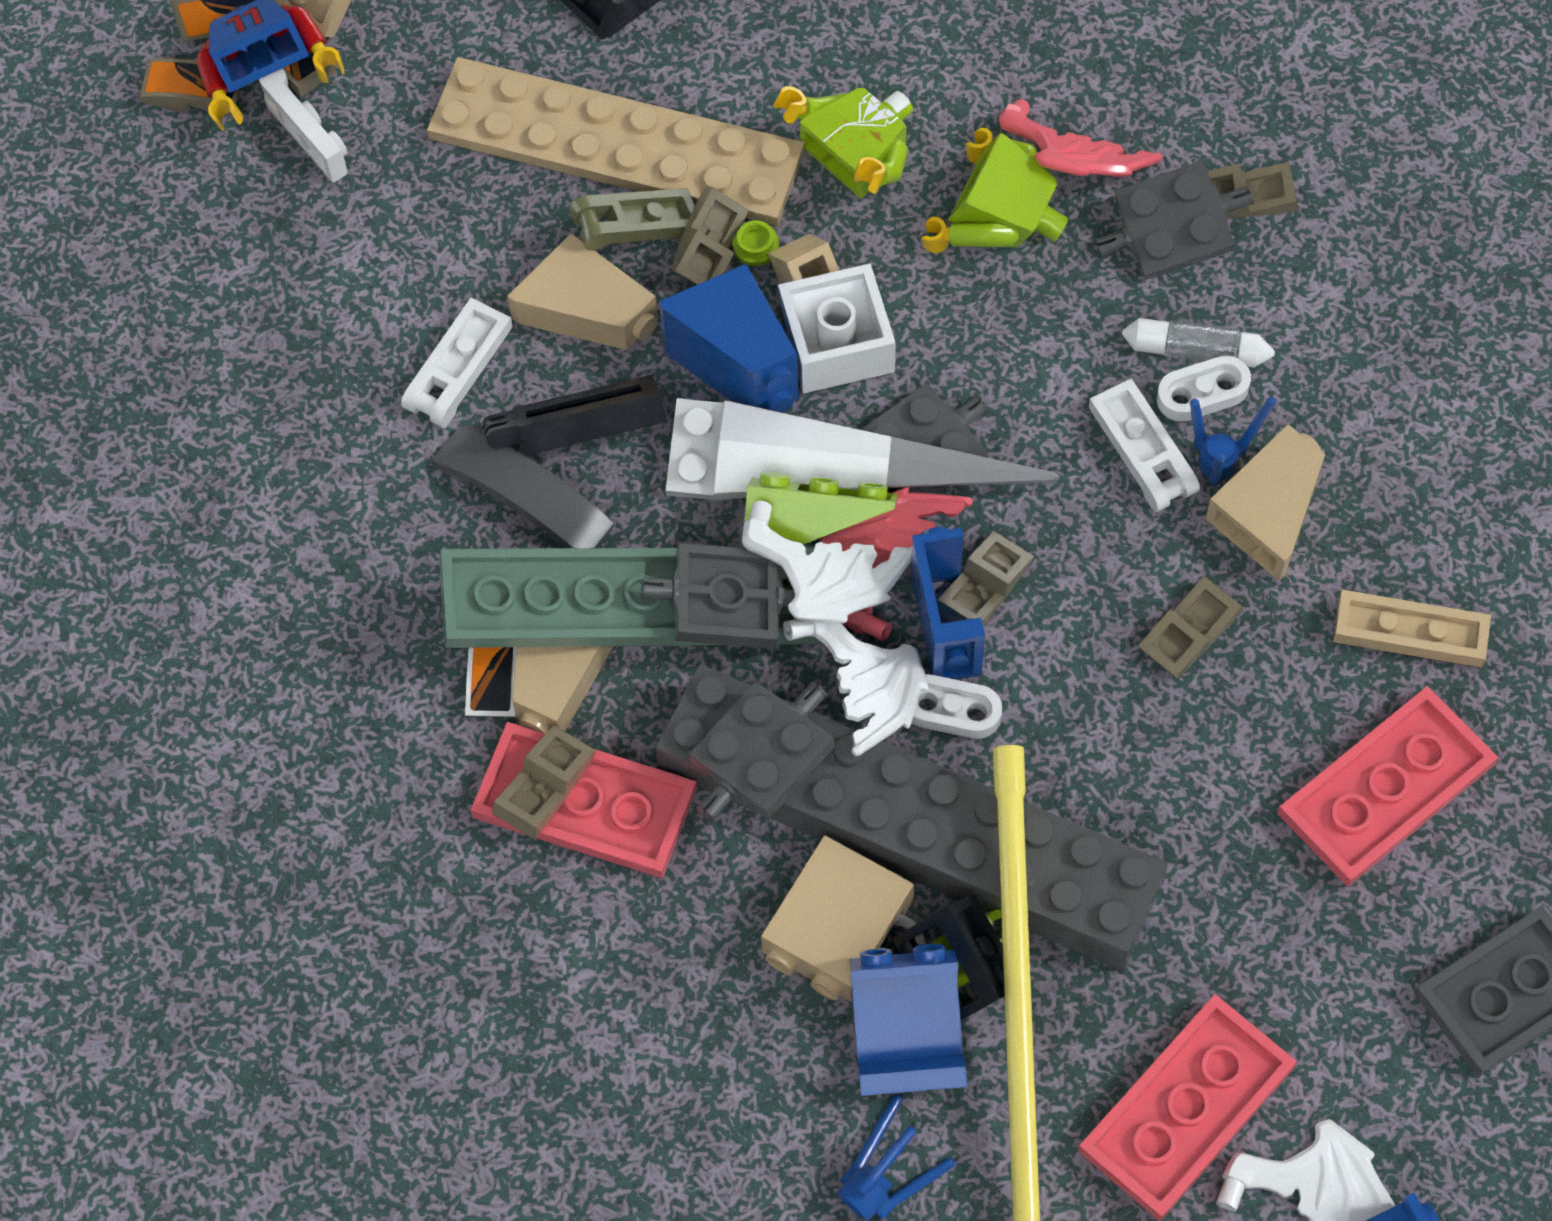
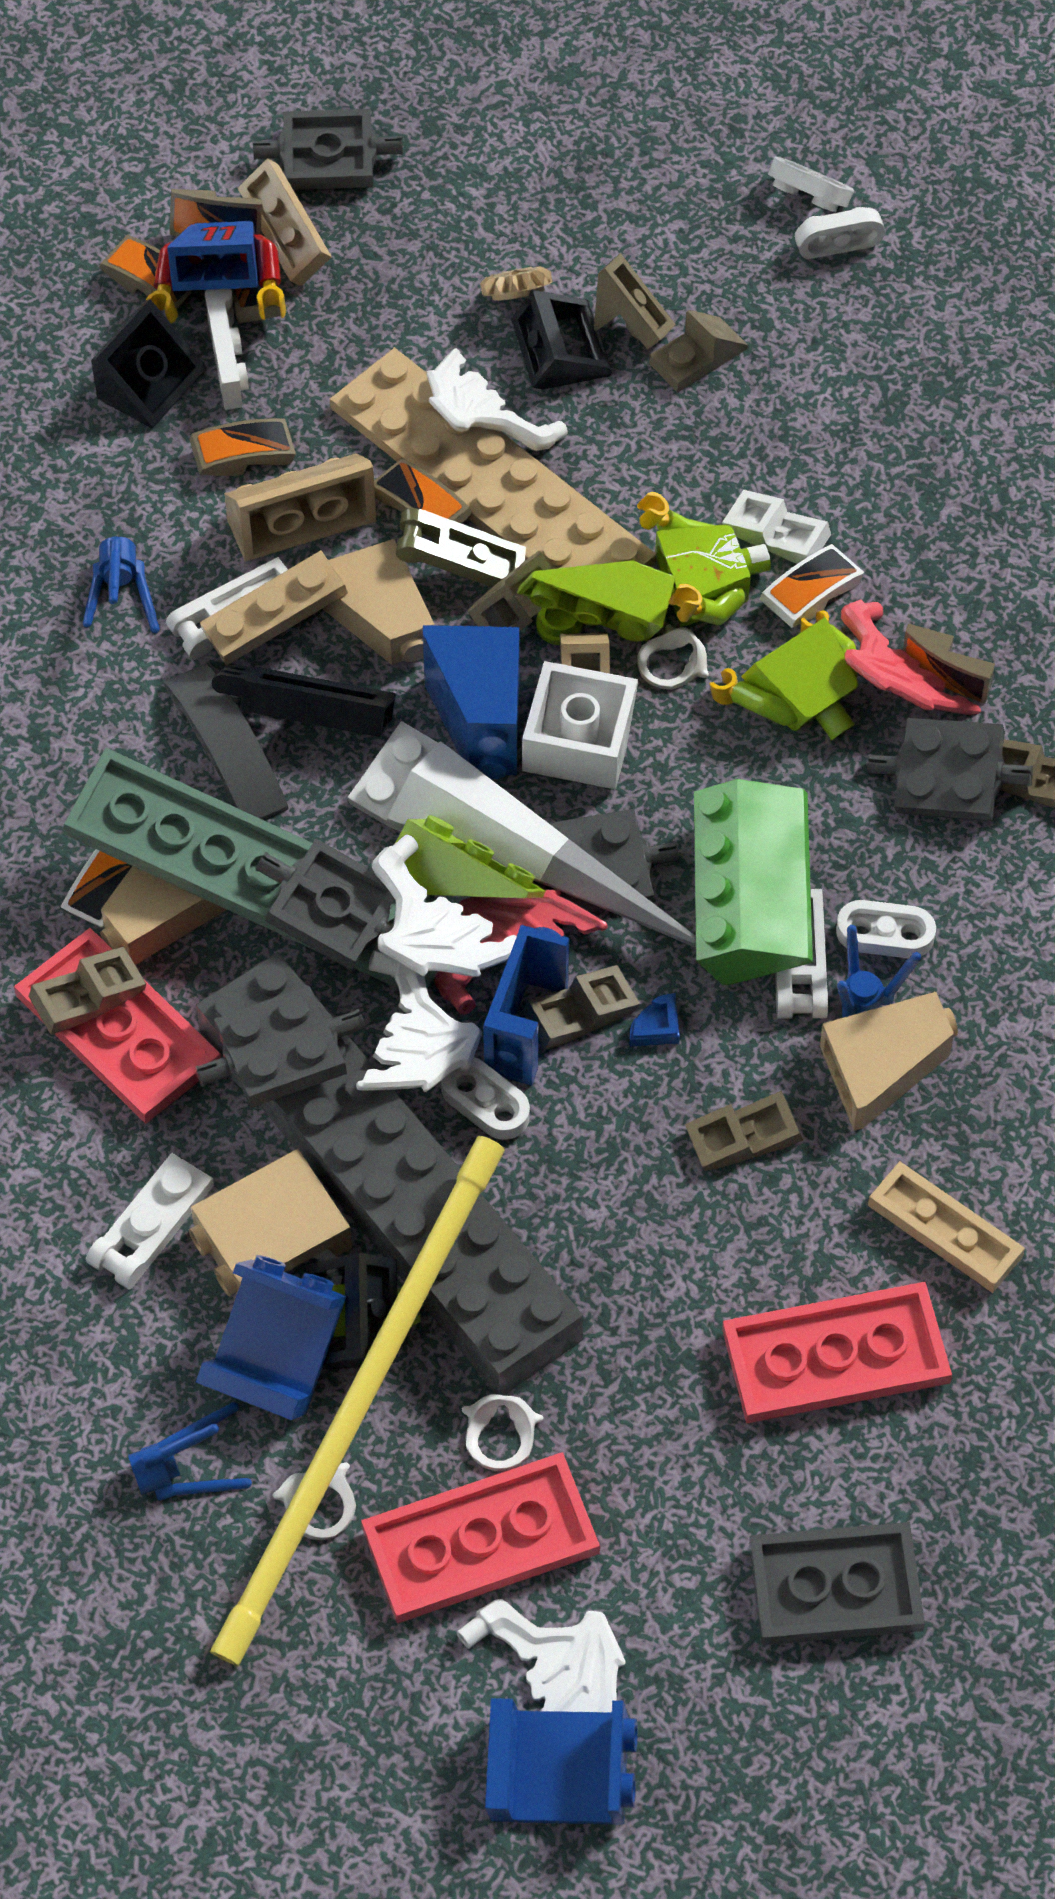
camera: 25 degrees right, 5 degrees down
(242, 175) = (145, 366): none -> black slope
(328, 374) = (117, 568): none -> blue plant
(369, 210) = (232, 446): none -> slope
(464, 239) = (302, 506): none -> tan slope
(500, 346) = (273, 607): none -> tan plate
(559, 182) = (412, 487): none -> slope
(566, 80) = (467, 404): none -> white animal
(722, 964) = (150, 1220): none -> white plate
(801, 196) = (613, 595): none -> lime slope
(861, 213) = (671, 640): none -> white piece
(885, 72) = (766, 521): none -> white slope
(955, 110) = (811, 584): none -> slope
(999, 1152) = (339, 1484): none -> white piece
(1057, 566) = (656, 1023): none -> blue tile
(1072, 398) = (752, 879): none -> slope
(1132, 130) = (960, 672): none -> slope
(1158, 981) = (479, 1417): none -> white piece
(1196, 341) = (906, 885): piece -> none

